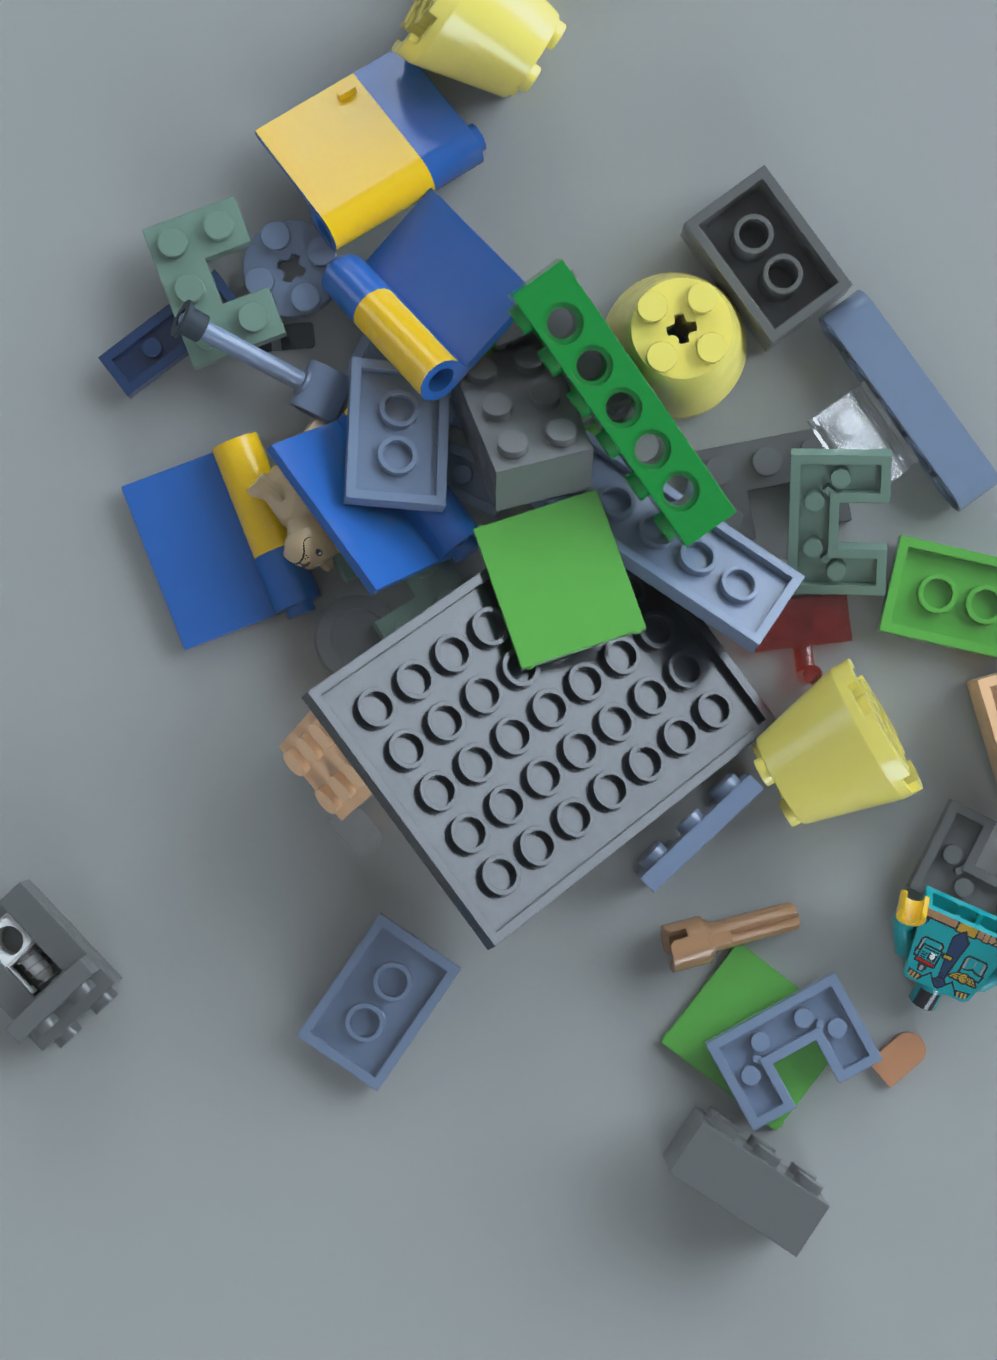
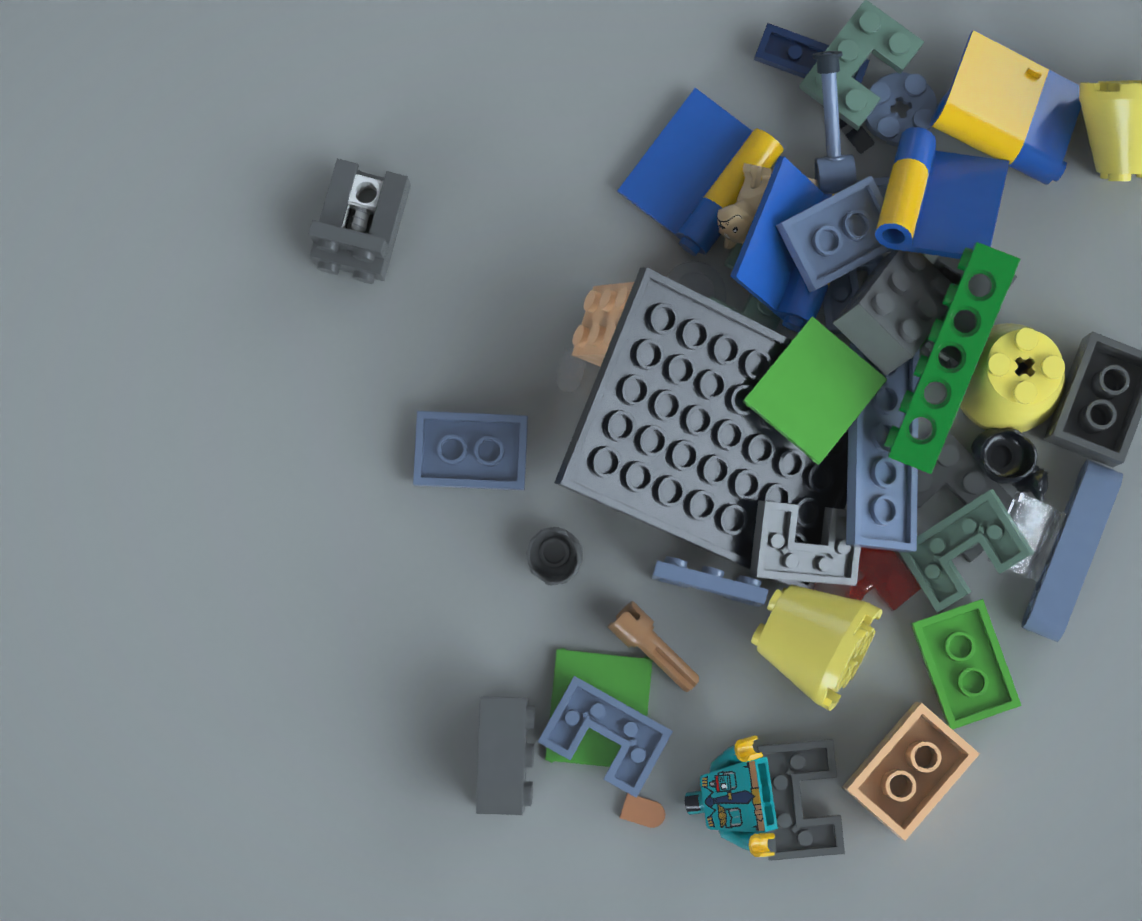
camera: 60 degrees right, 5 degrees down
(557, 981) = (554, 555): none -> dark grey hair
(722, 733) = (780, 557): none -> plate
(767, 404) = (1010, 459): none -> black hair

